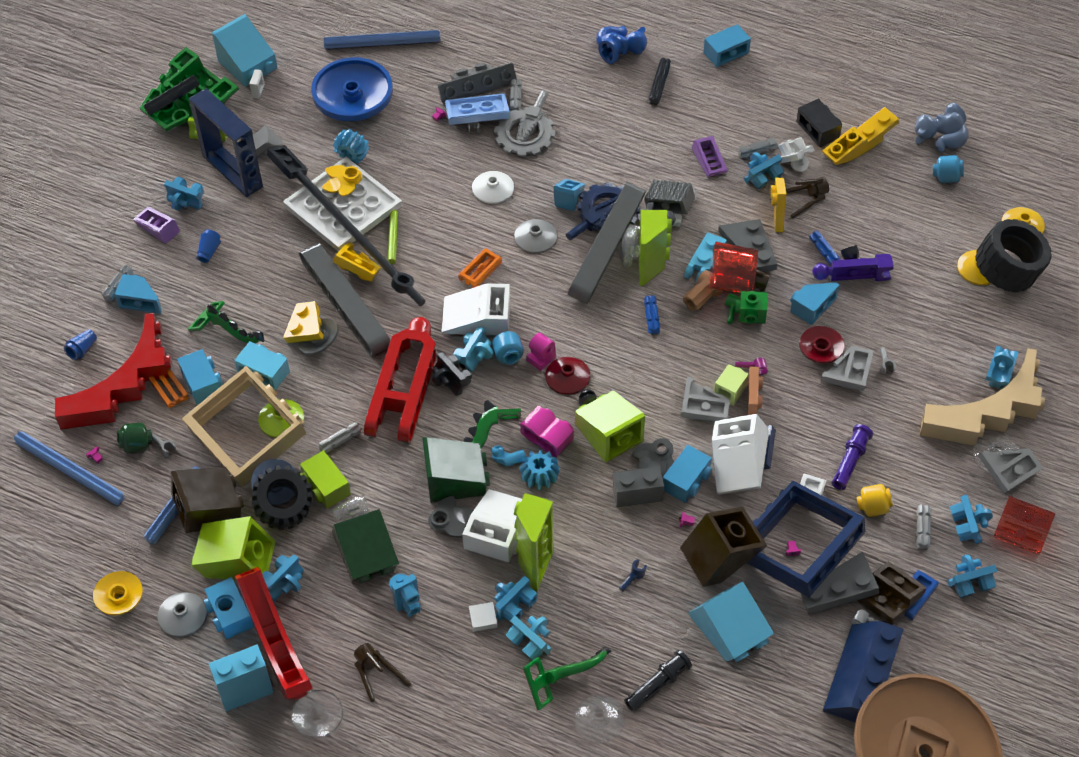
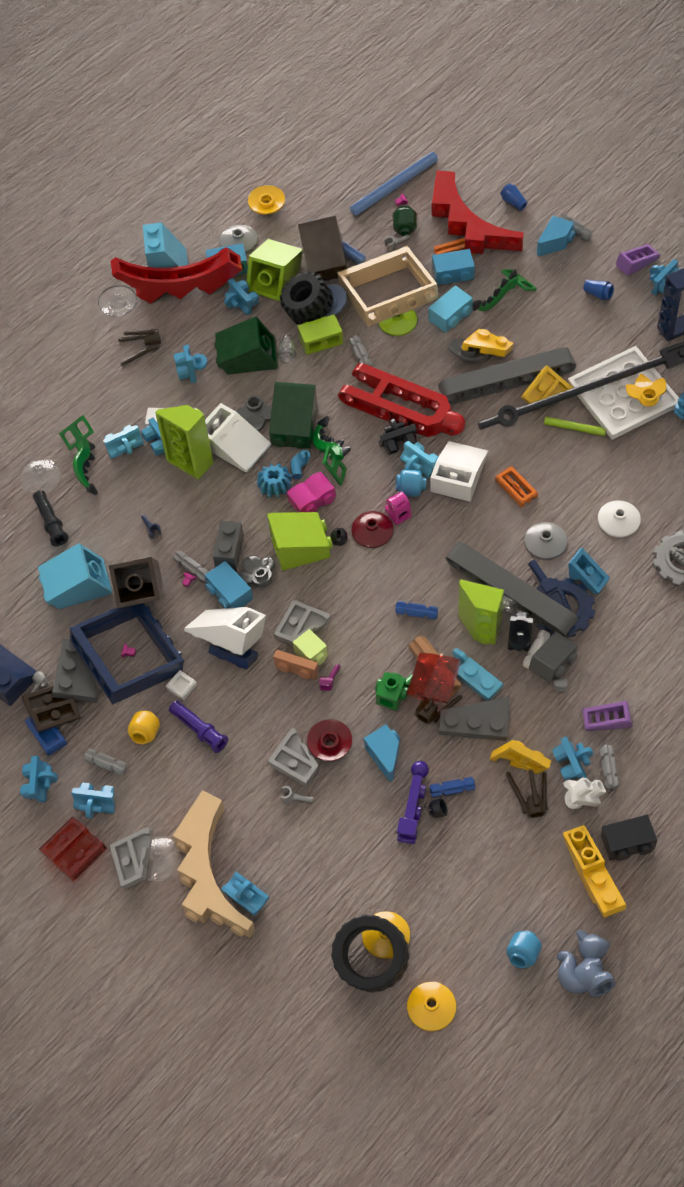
camera: 110 degrees right, 5 degrees up
(670, 520) = (190, 565): none -> light grey axle

